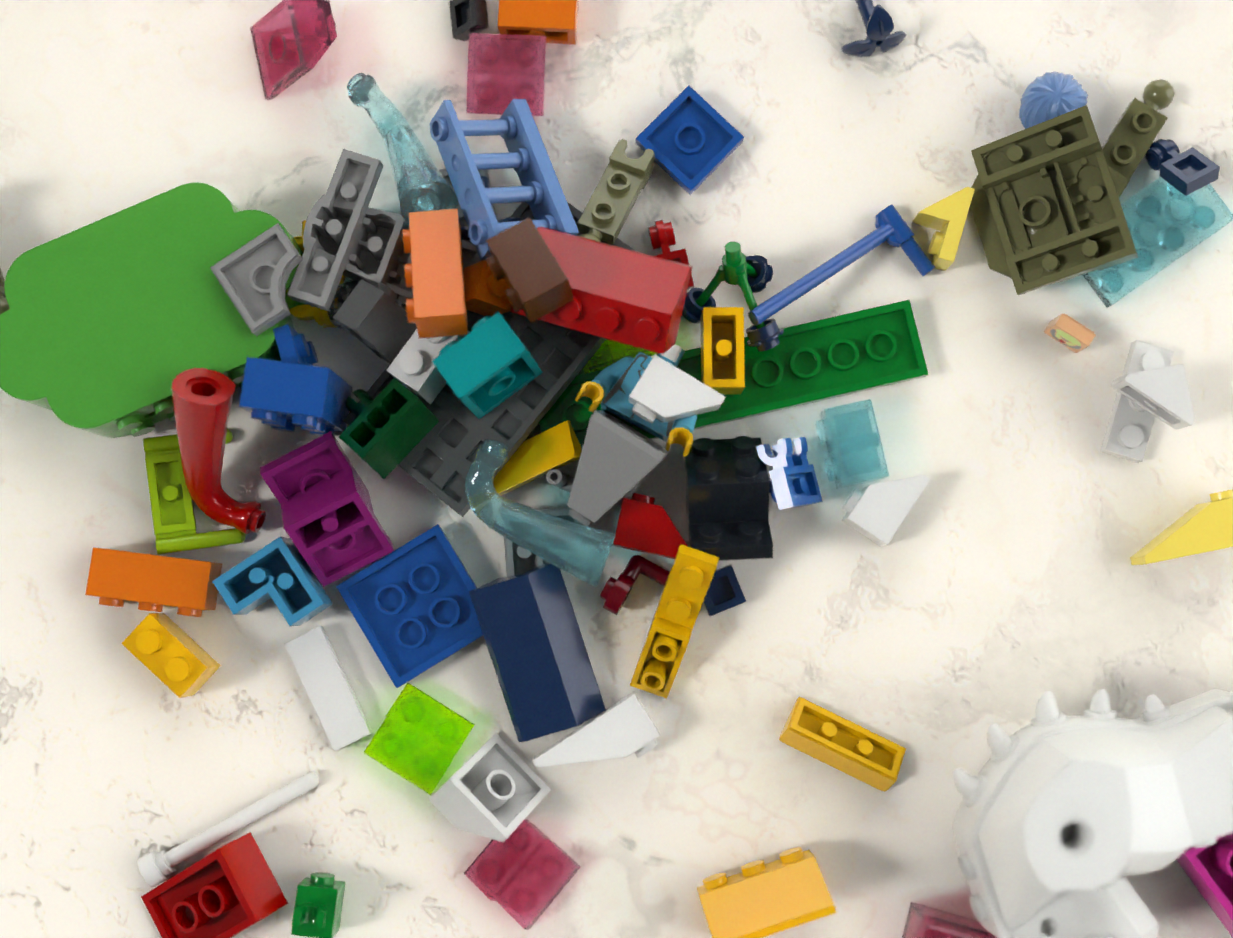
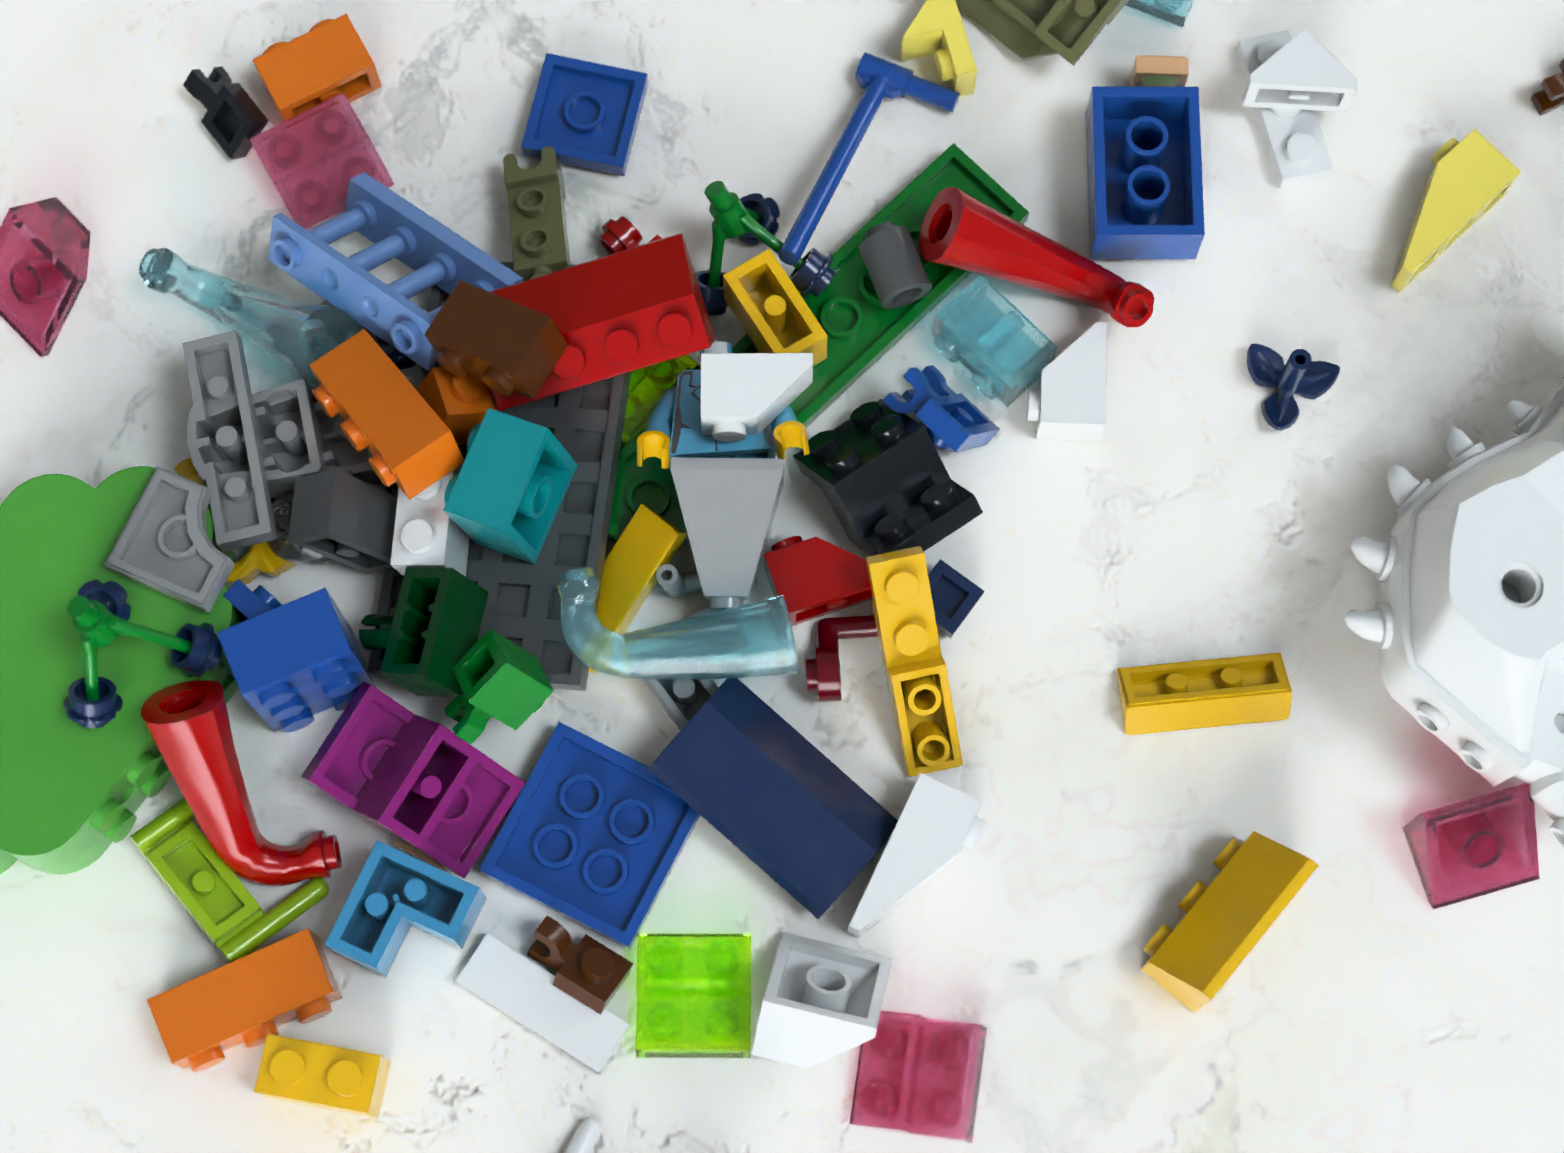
camera: 30 degrees left, 10 degrees down
(174, 309) = (101, 617): none -> plant
(364, 686) = (585, 970): none -> reddish brown plate
(406, 485) = (496, 682): none -> green brick
(819, 360) = (894, 265): none -> dark grey brick
(882, 377) = (982, 240): none -> red animal
(1018, 393) = (1144, 173): none -> blue brick
(1036, 586) = (1297, 376): none -> dark blue plant

